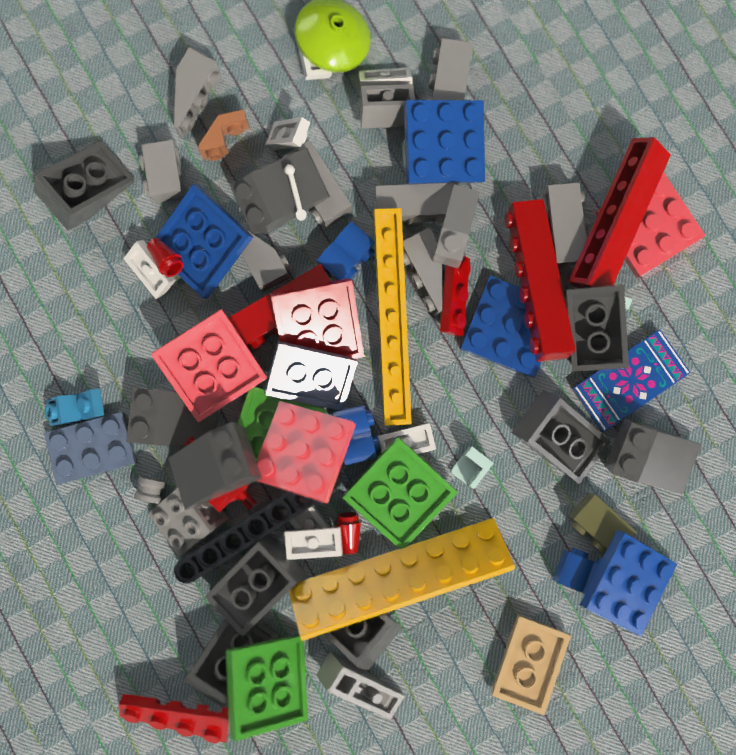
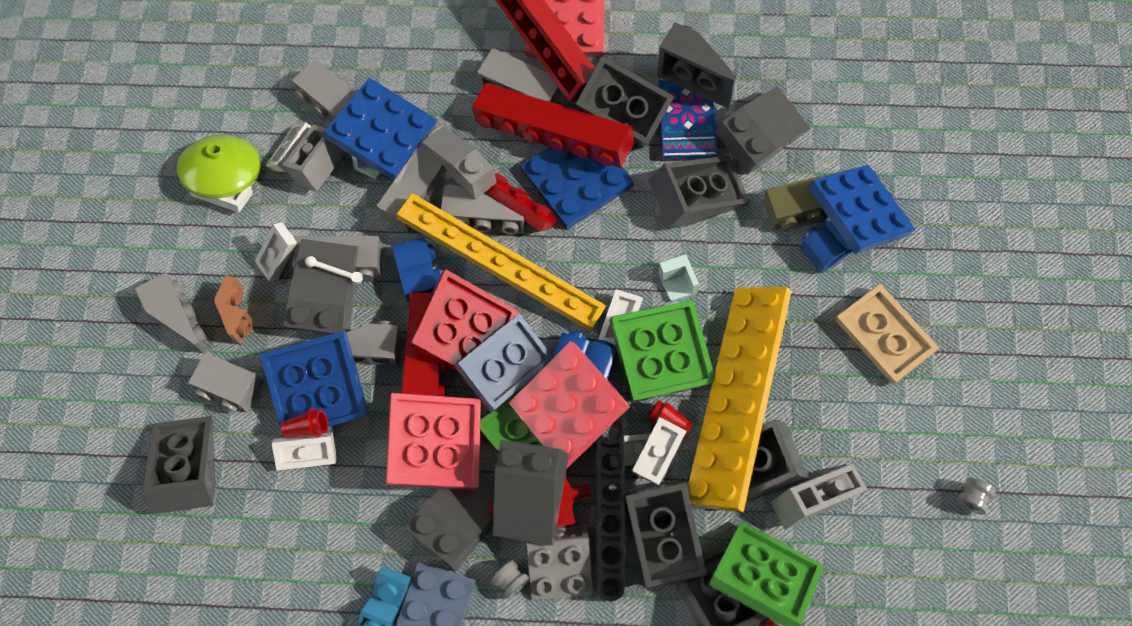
camera: 50 degrees left, 15 degrees down
(672, 364) = (695, 66): none -> dark grey slope

